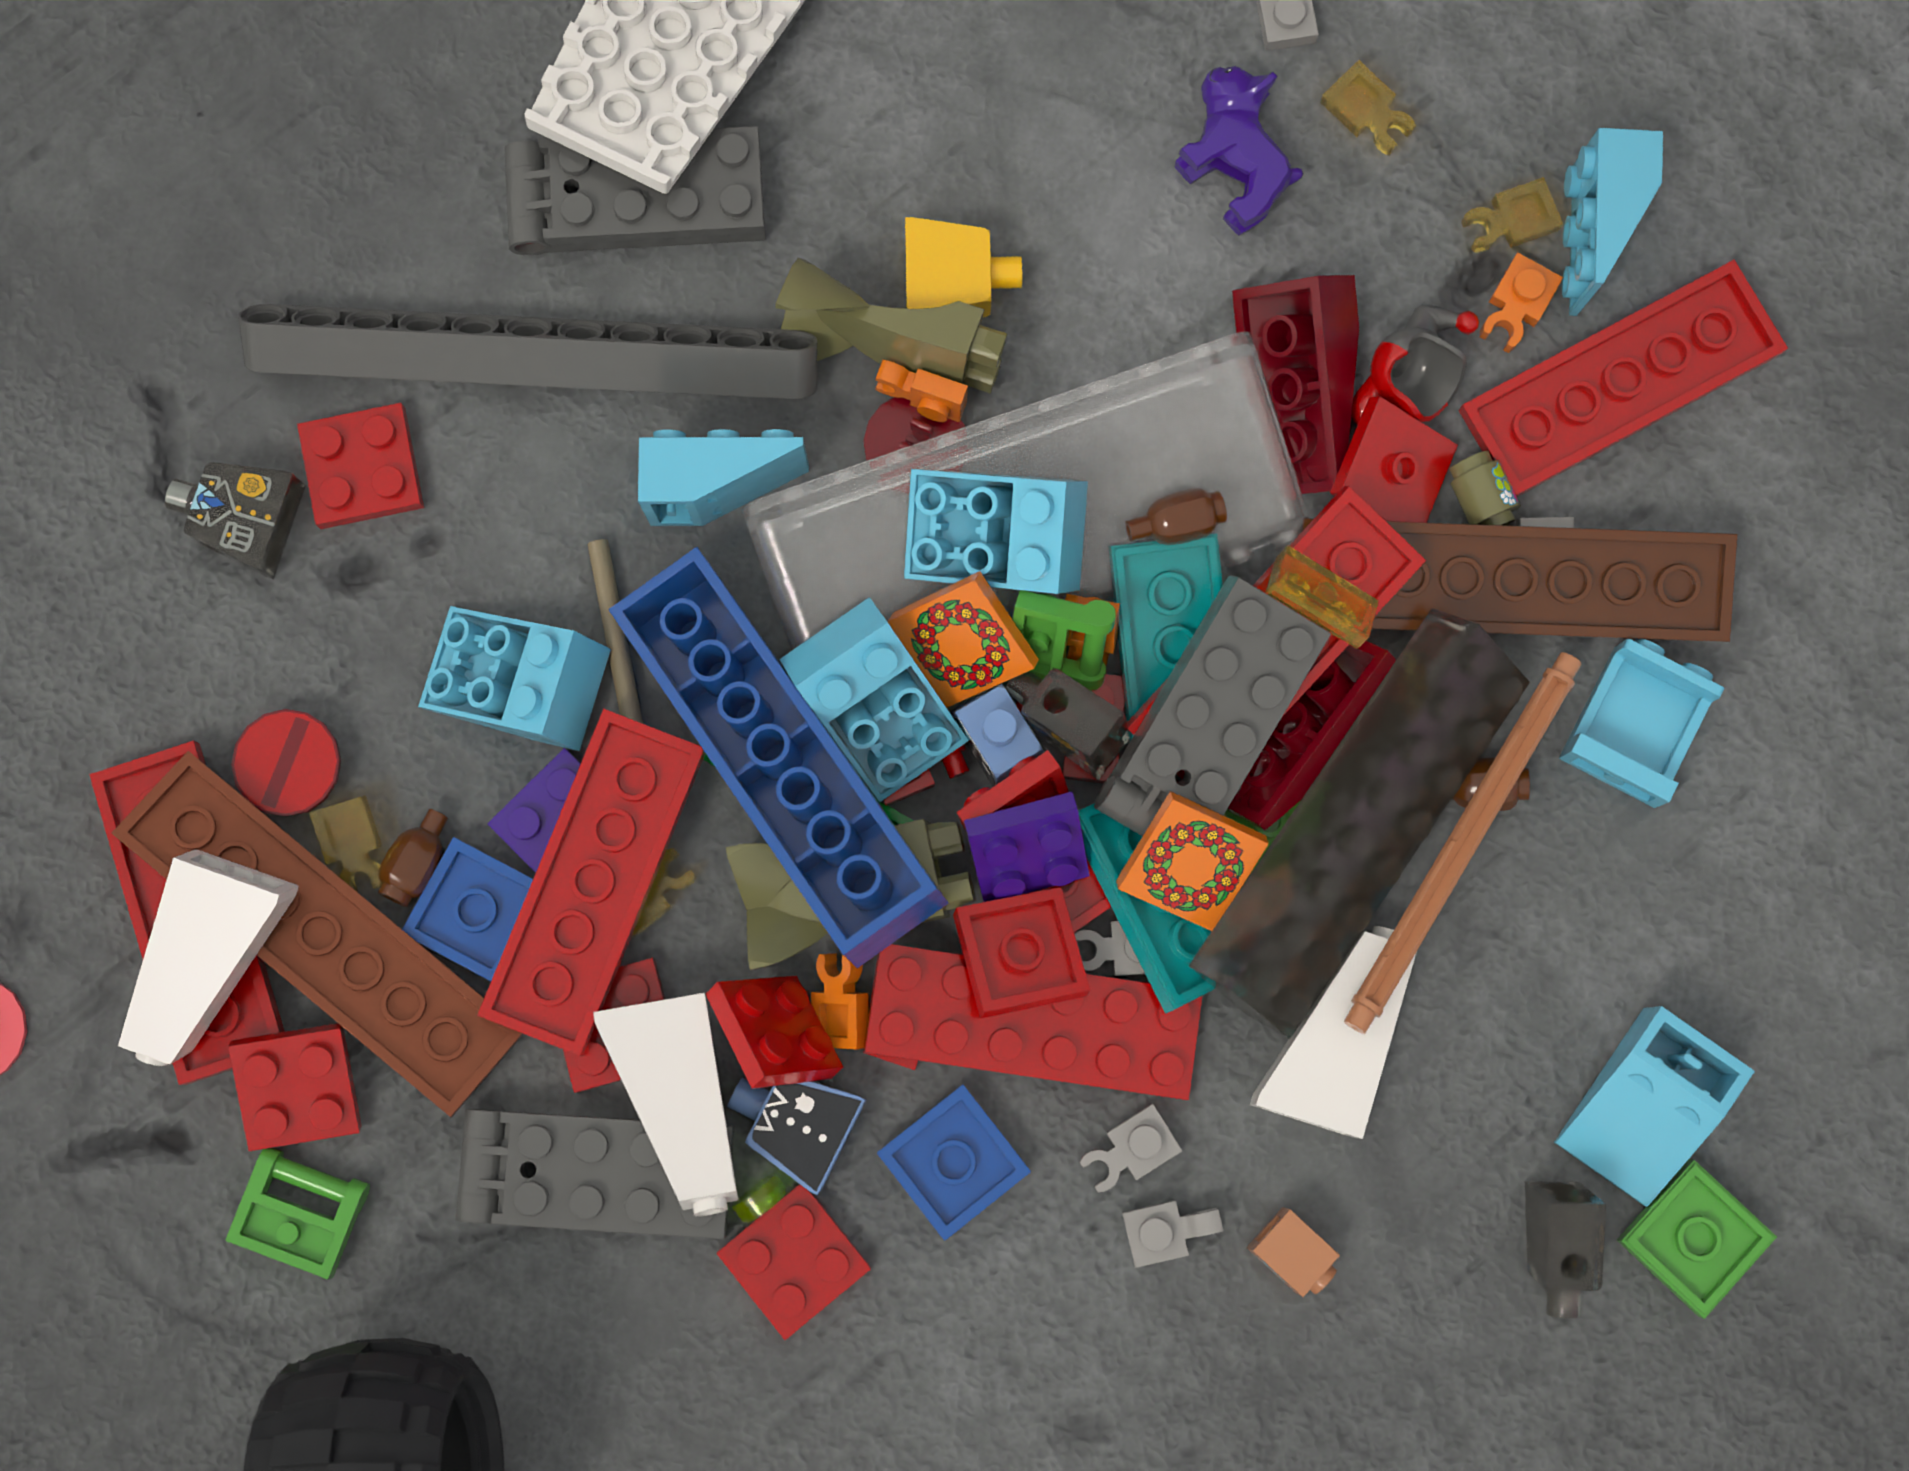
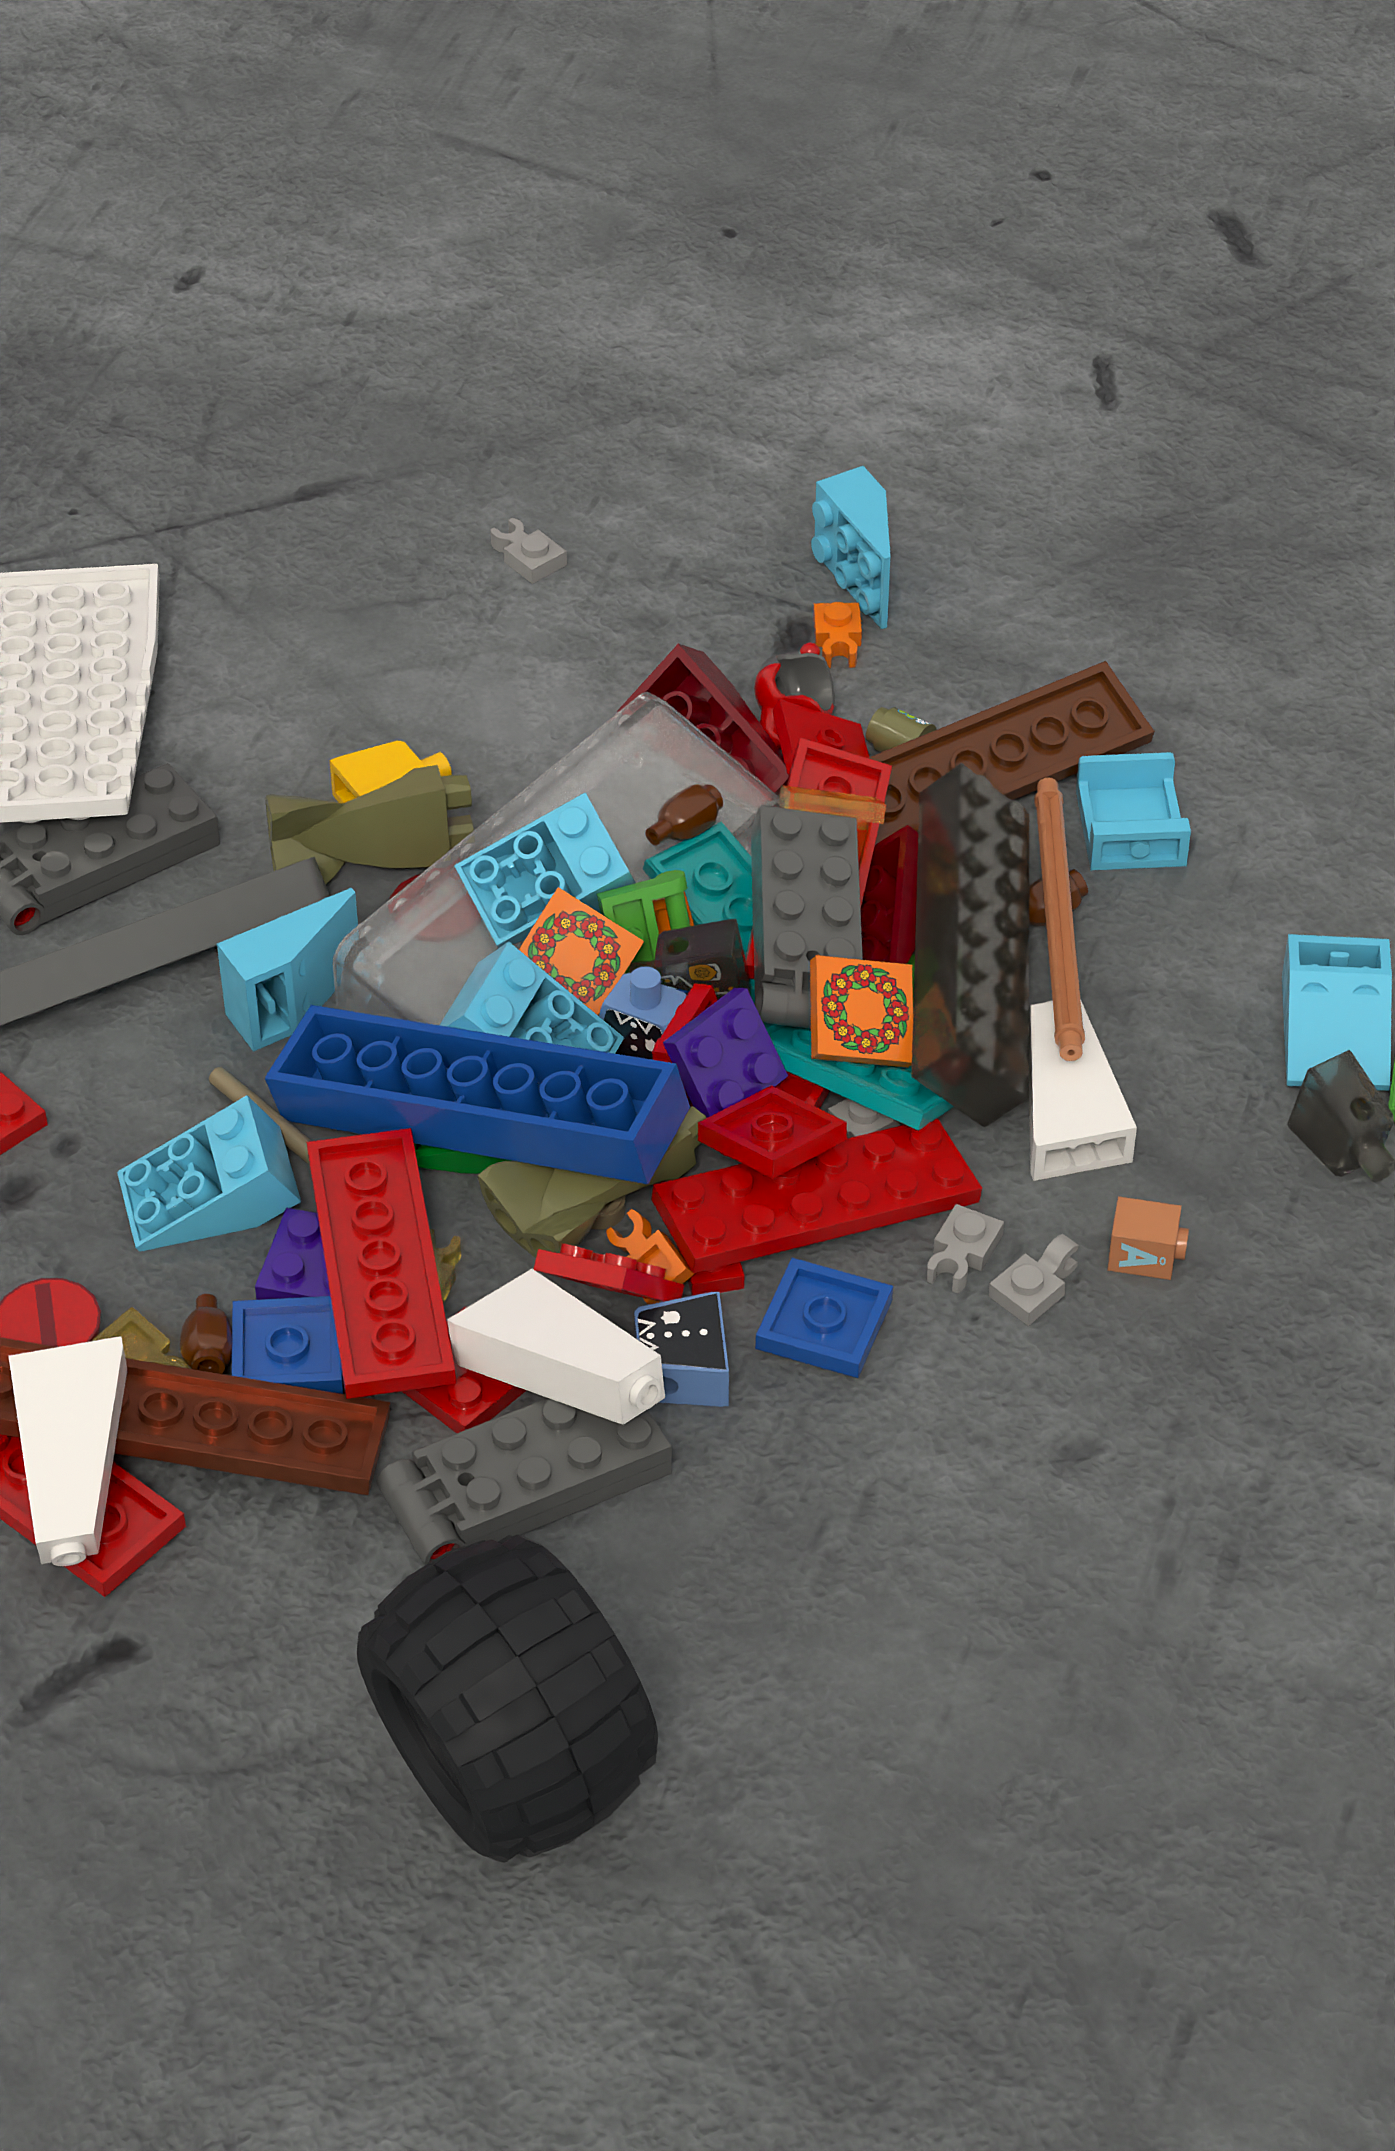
camera: 30 degrees left, 35 degrees down
(291, 1230) = (279, 1643): bright green plate -> none
(295, 1086) = (211, 1535): red plate -> none
(760, 1198) = (681, 1416): clear neon green tile -> none
(794, 1261) = (742, 1454): red plate -> none
(930, 393) = (414, 859): orange plate -> none
(1239, 146) = (556, 629): dark purple animal -> none
(1363, 102) = (632, 572): clear yellow plate -> none
(1518, 213) = (798, 582): clear yellow plate -> none
(1624, 378) = (951, 634): red plate -> none

